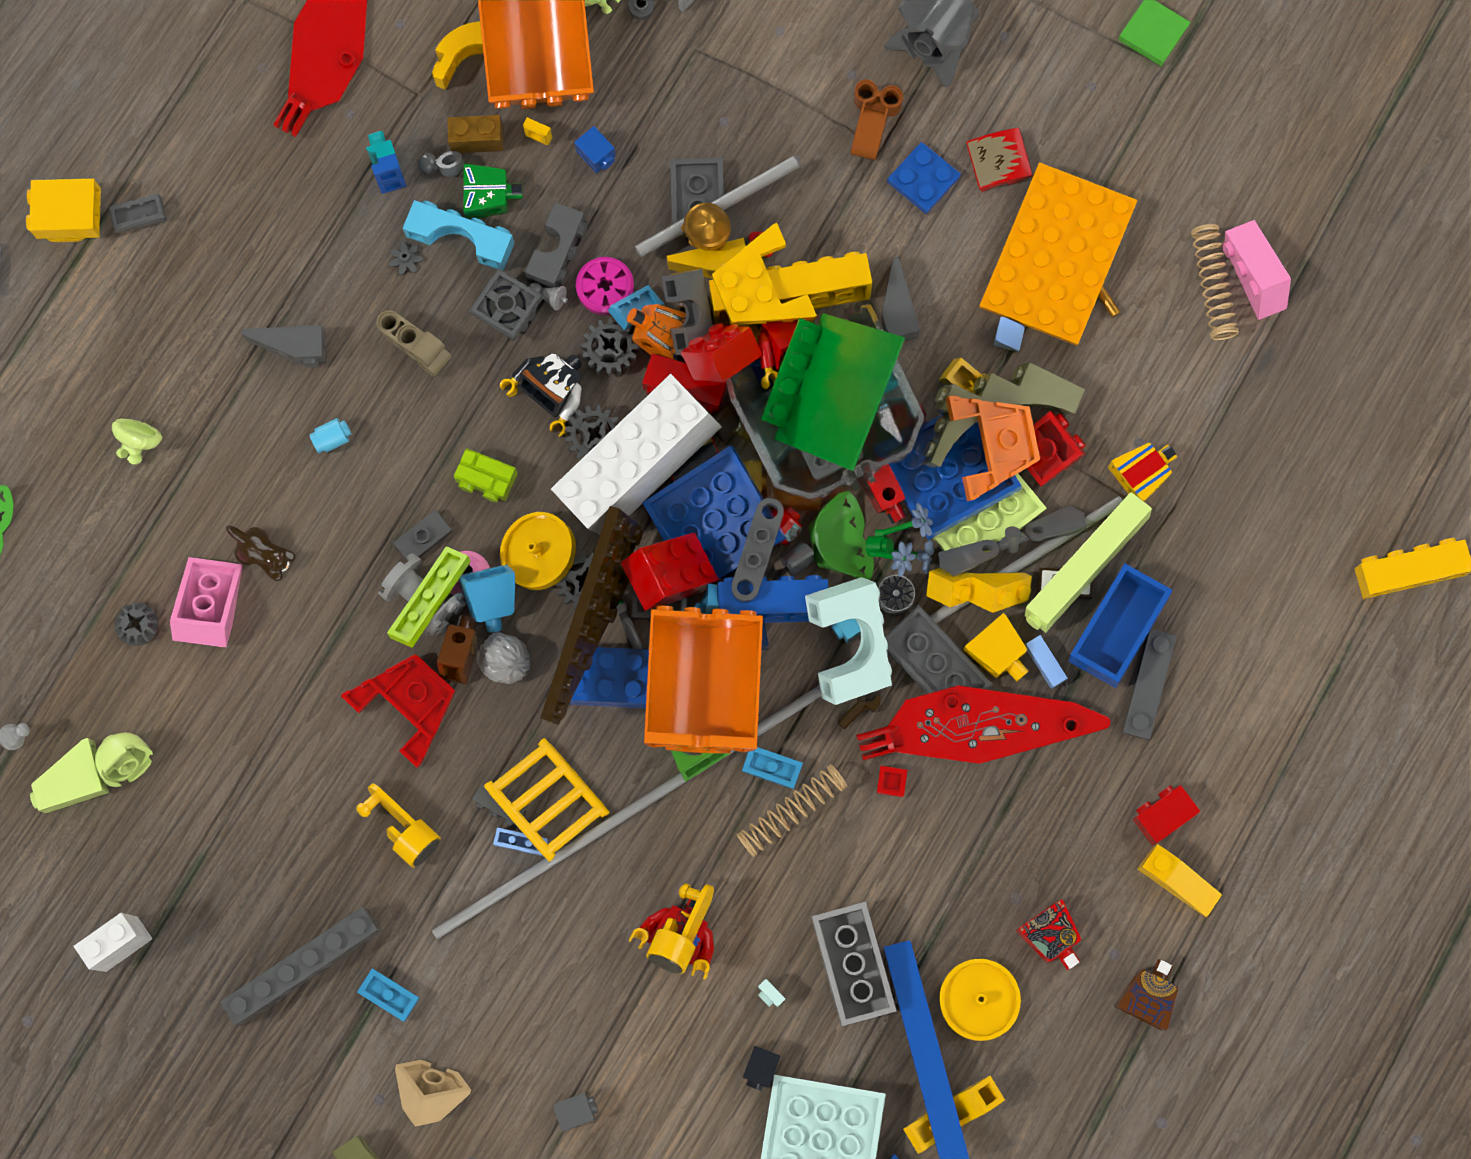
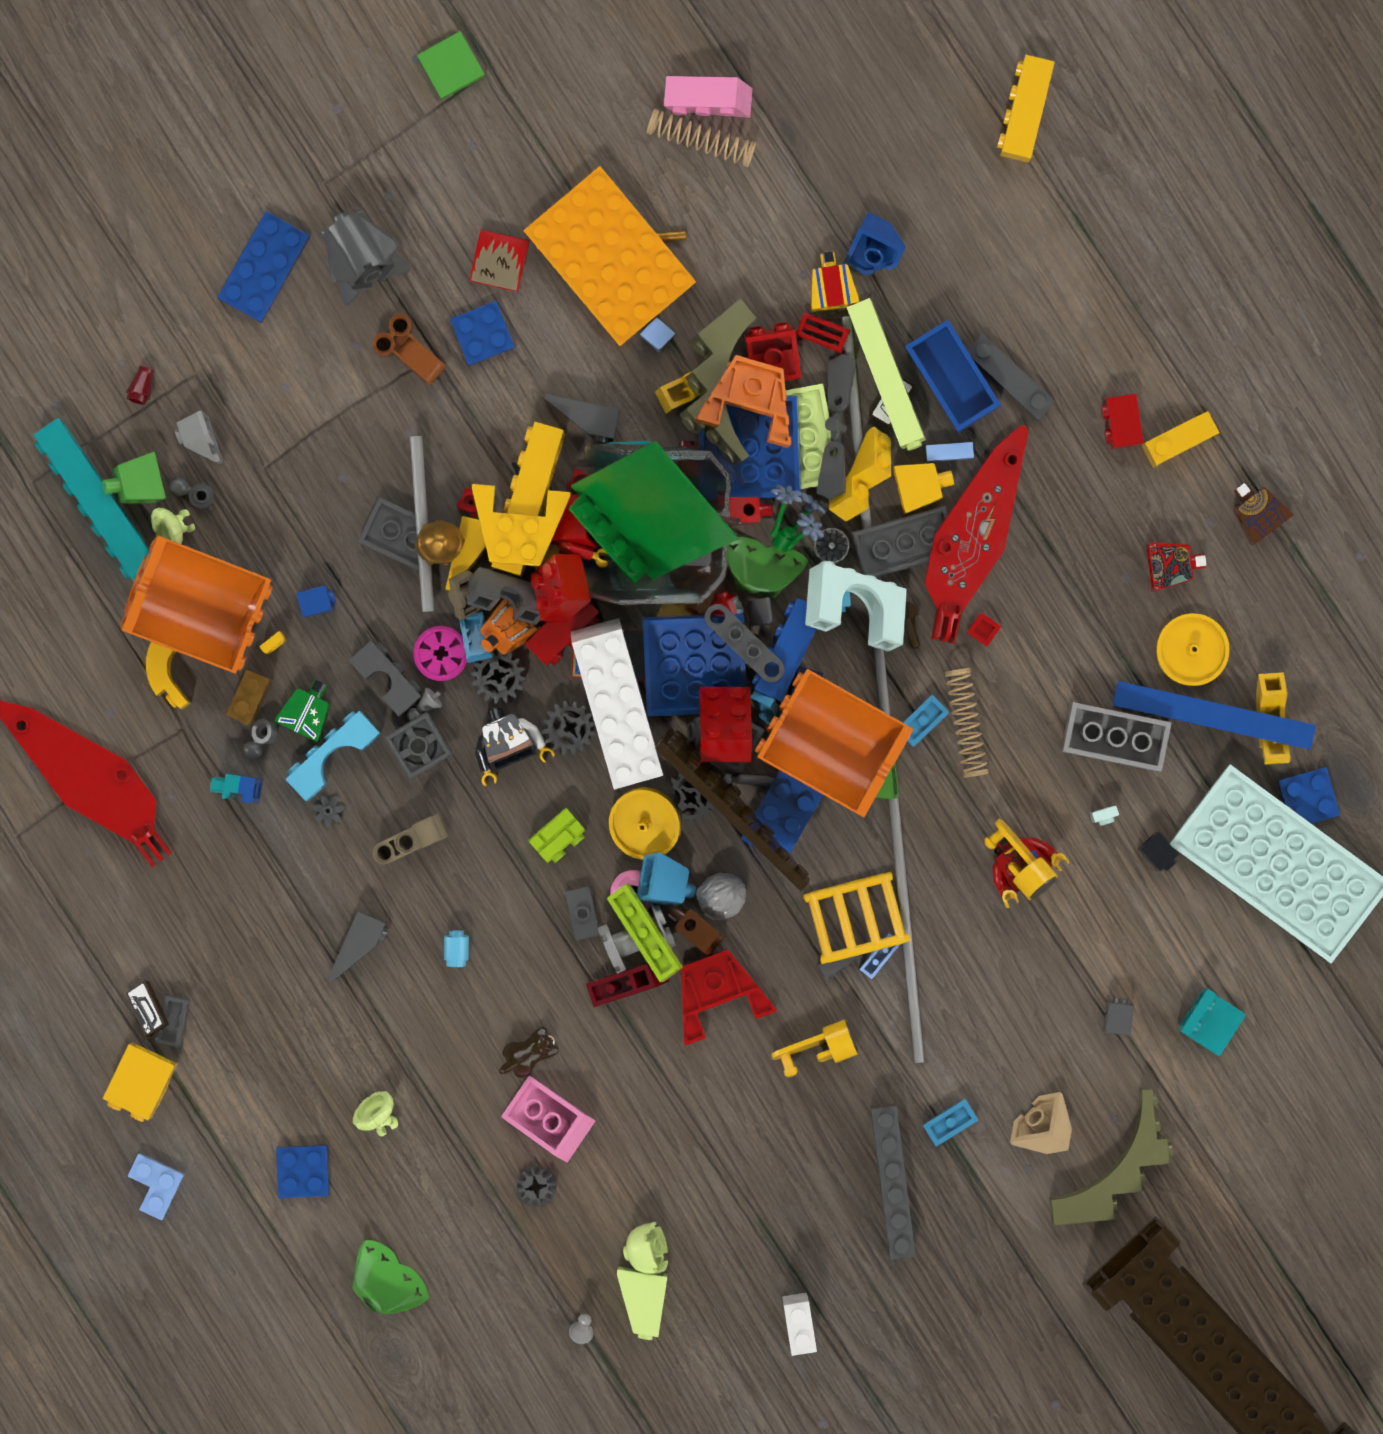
camera: 65 degrees left, 10 degrees up
(49, 400) = (302, 1171): none -> blue plate
(138, 184) = (147, 1008): none -> tile
(370, 607) = (624, 984): none -> dark red slope
(666, 268) = (458, 595): none -> dark tan piece
(1097, 506) = (842, 340): none -> red tile
(1202, 490) = (875, 246): none -> blue slope

